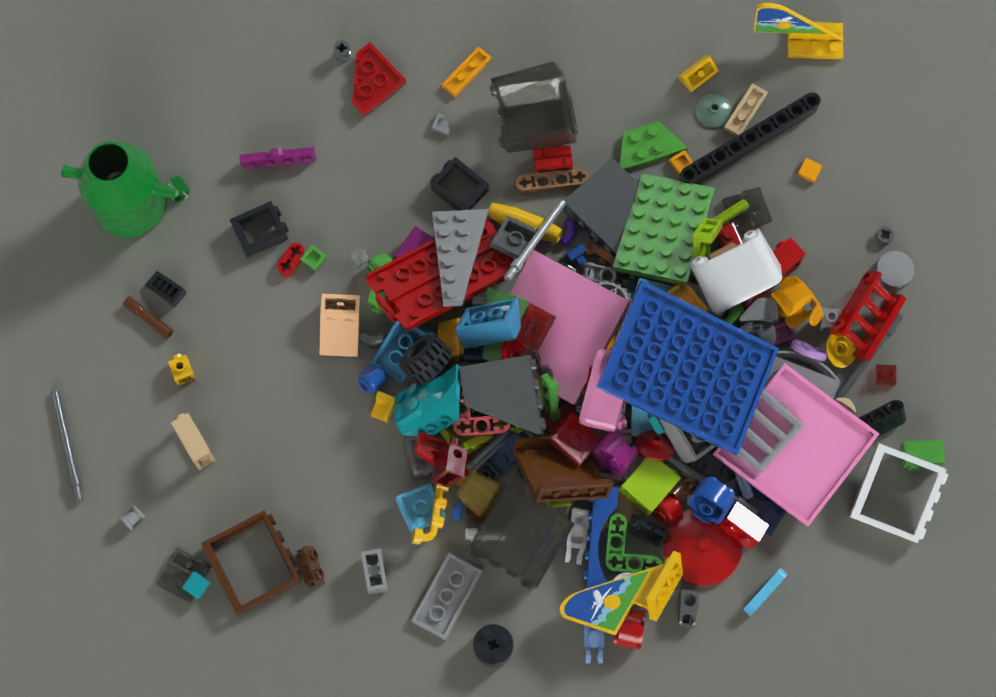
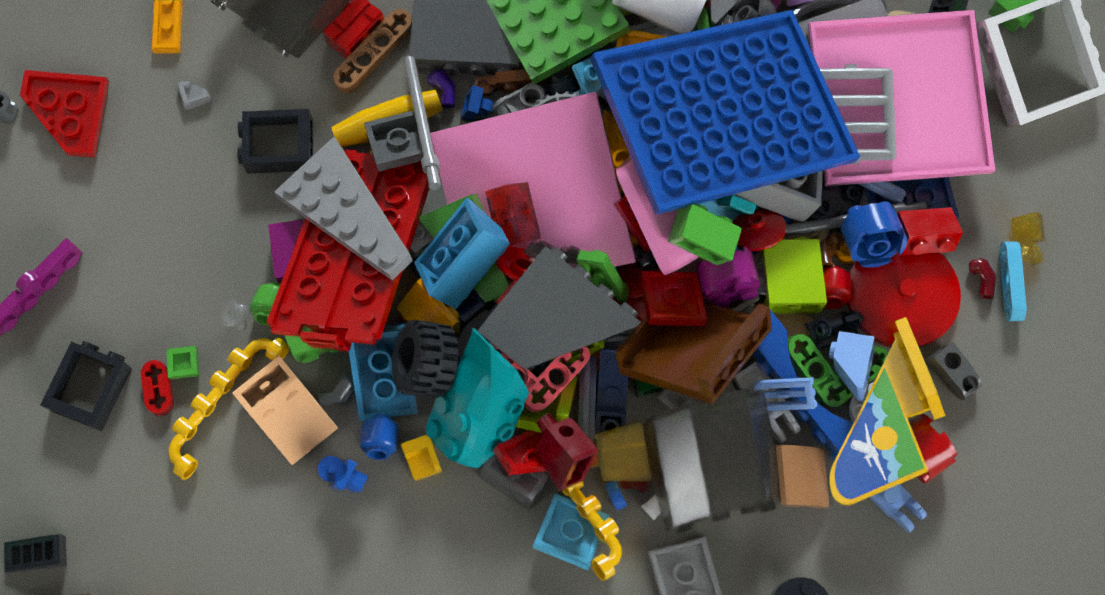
camera: 45 degrees left, 0 degrees up
(305, 288) = (204, 405): none -> yellow bar
(337, 379) = (341, 474): none -> blue hips
(556, 584) = (802, 476): none -> medium nougat slope
(596, 544) = (808, 392): none -> light blue tile
(615, 419) = (705, 234): none -> bright green brick
(638, 553) = (853, 361): none -> light blue slope
(756, 577) = (987, 276): none -> dark red arm
(797, 576) = (1029, 231): none -> clear yellow plate

